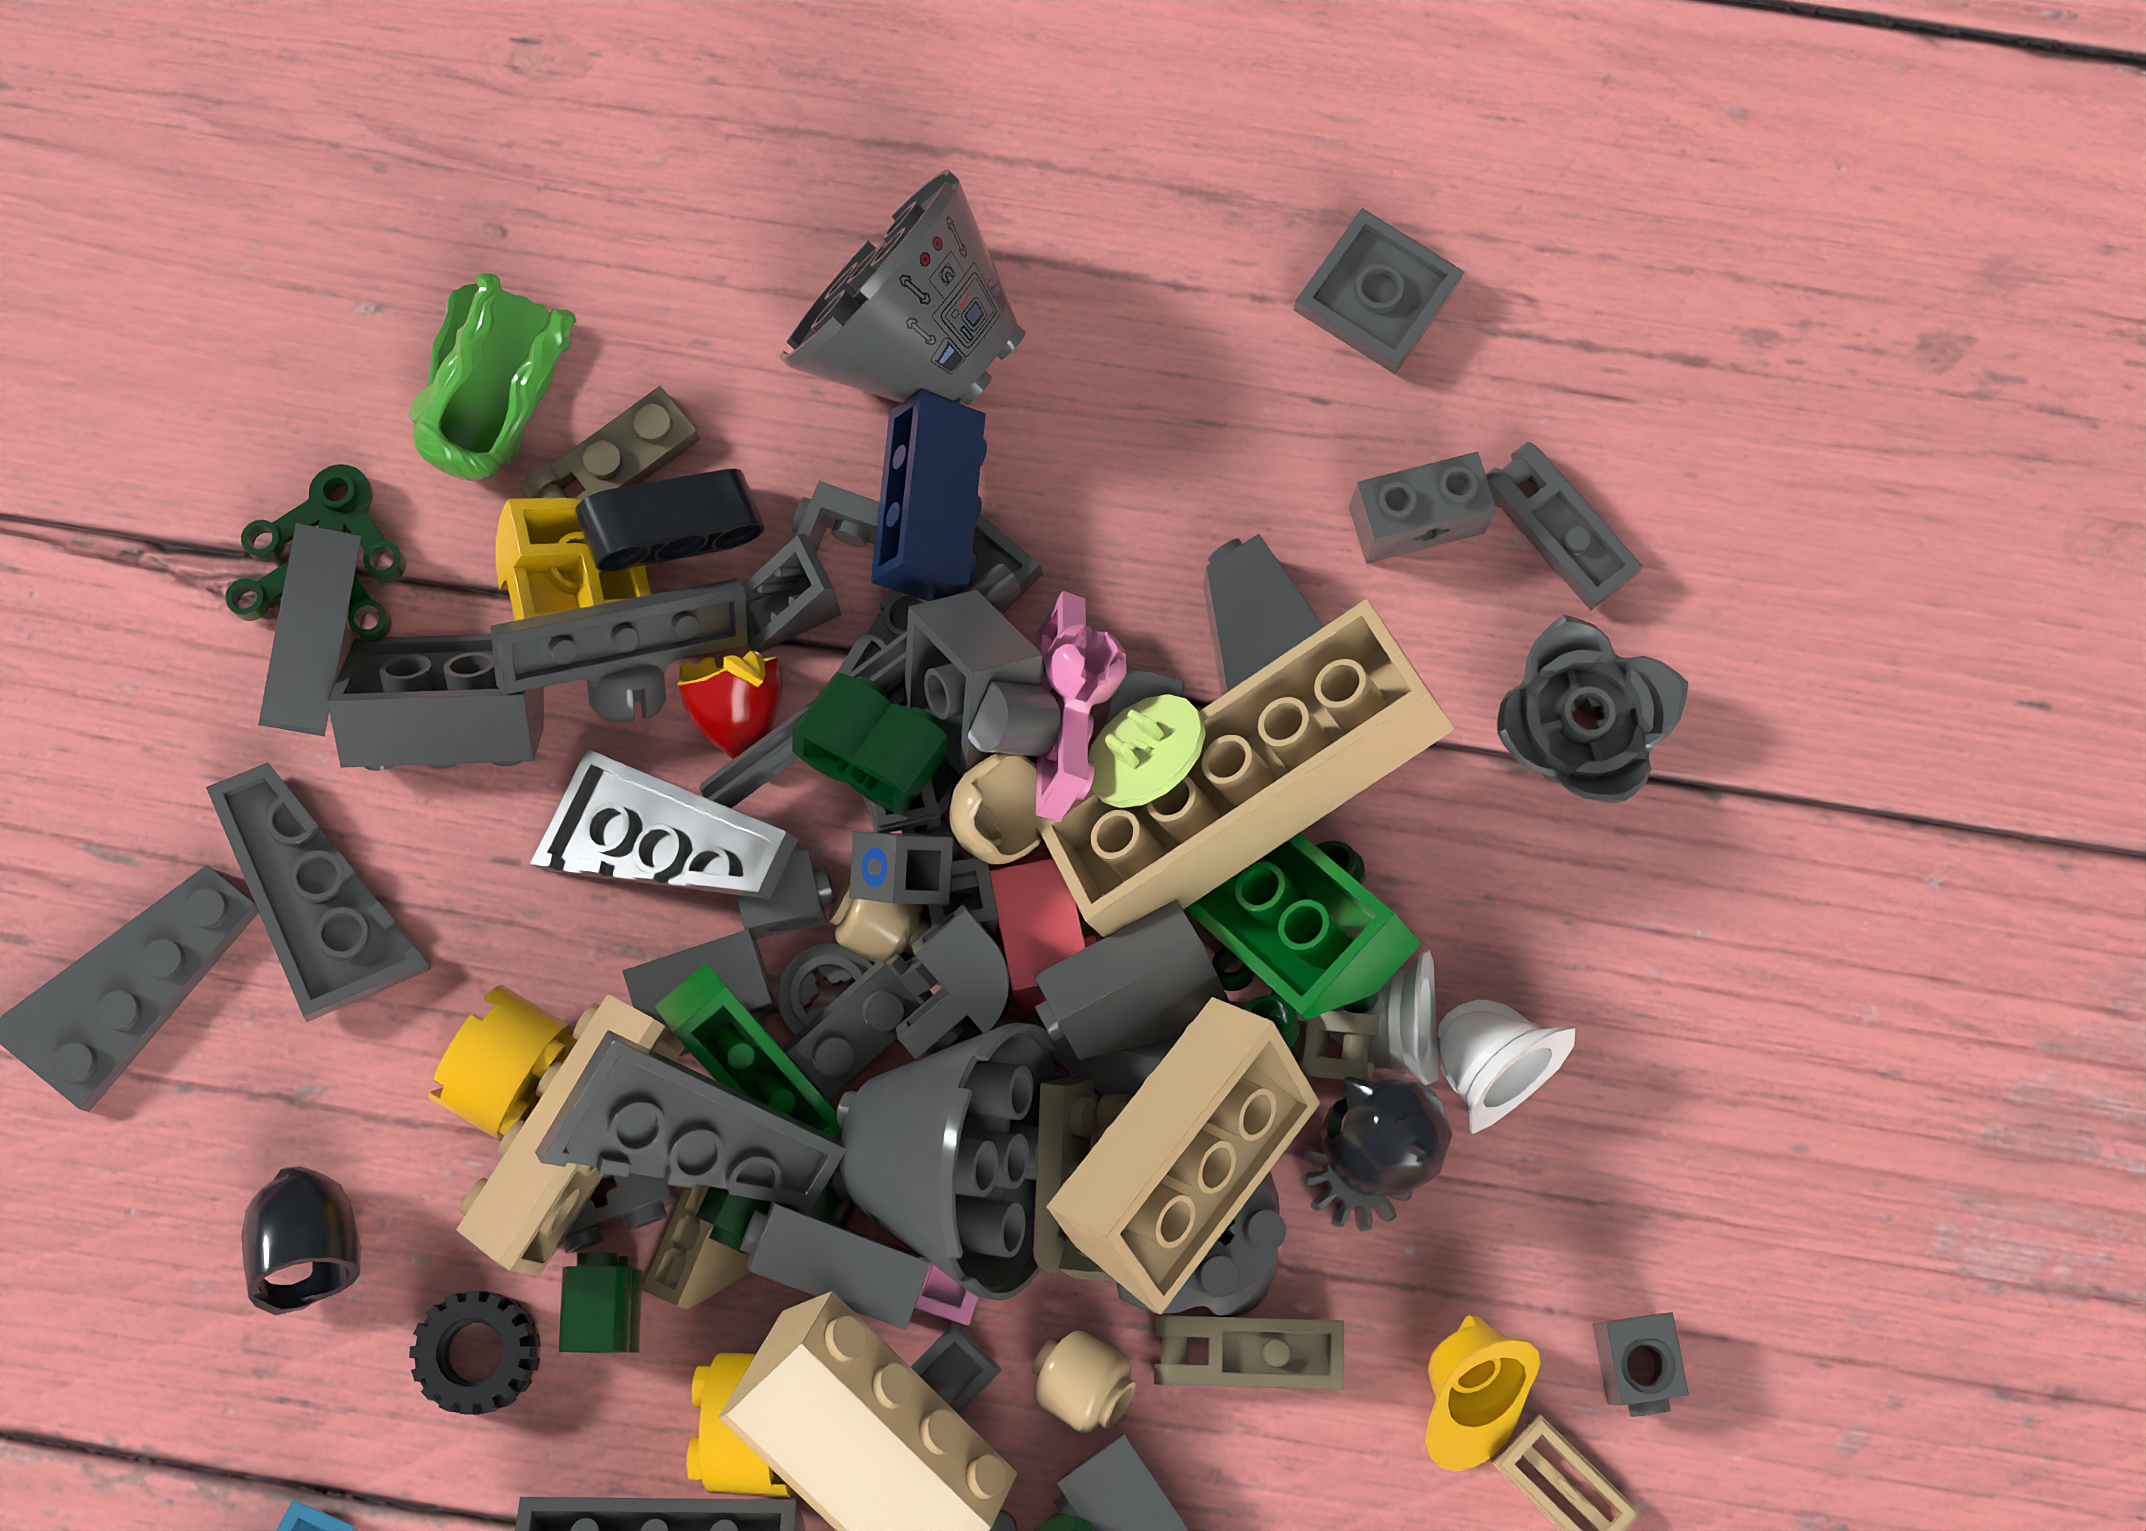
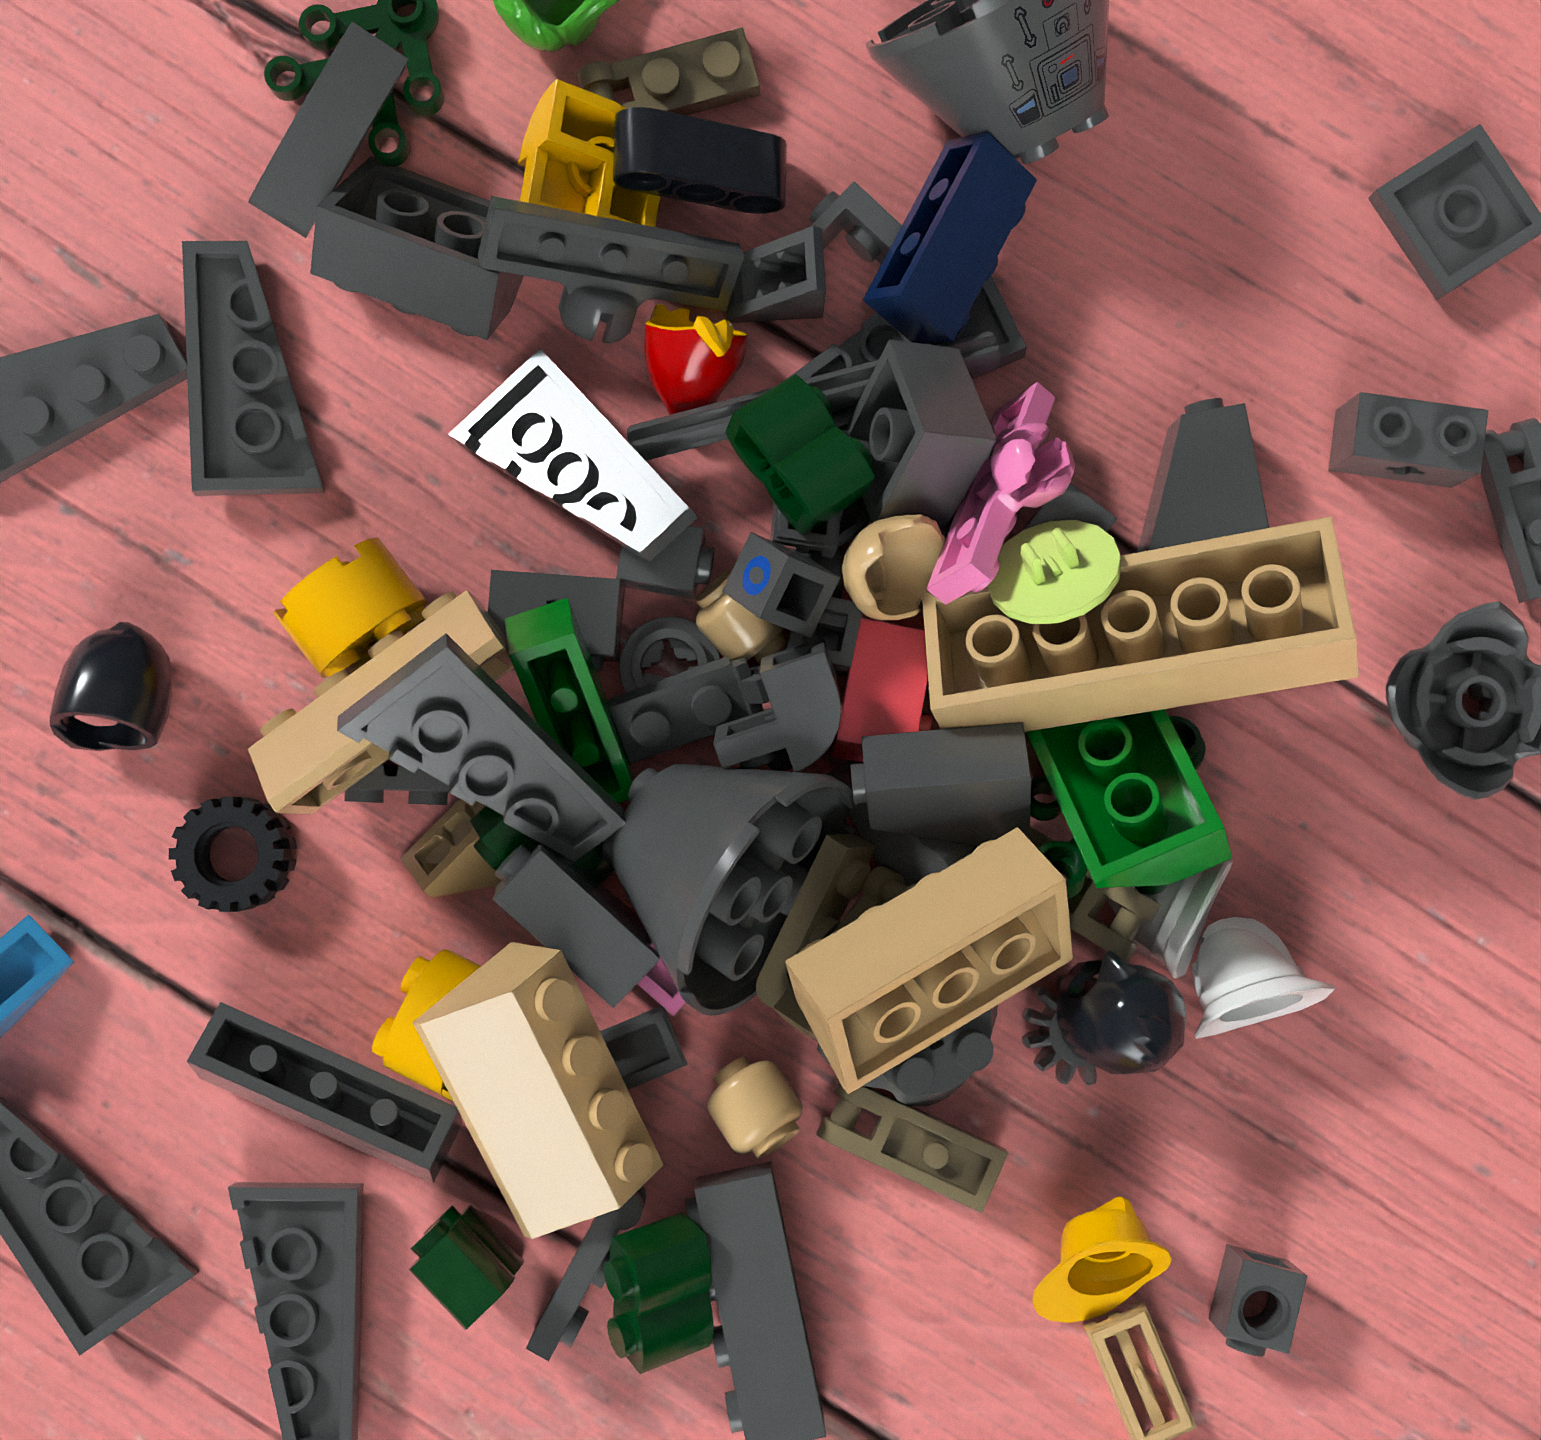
camera: 20 degrees right, 10 degrees up
(600, 1305) = (354, 865): dark green brick -> none
(1016, 720) = (945, 492): dark grey brick -> none

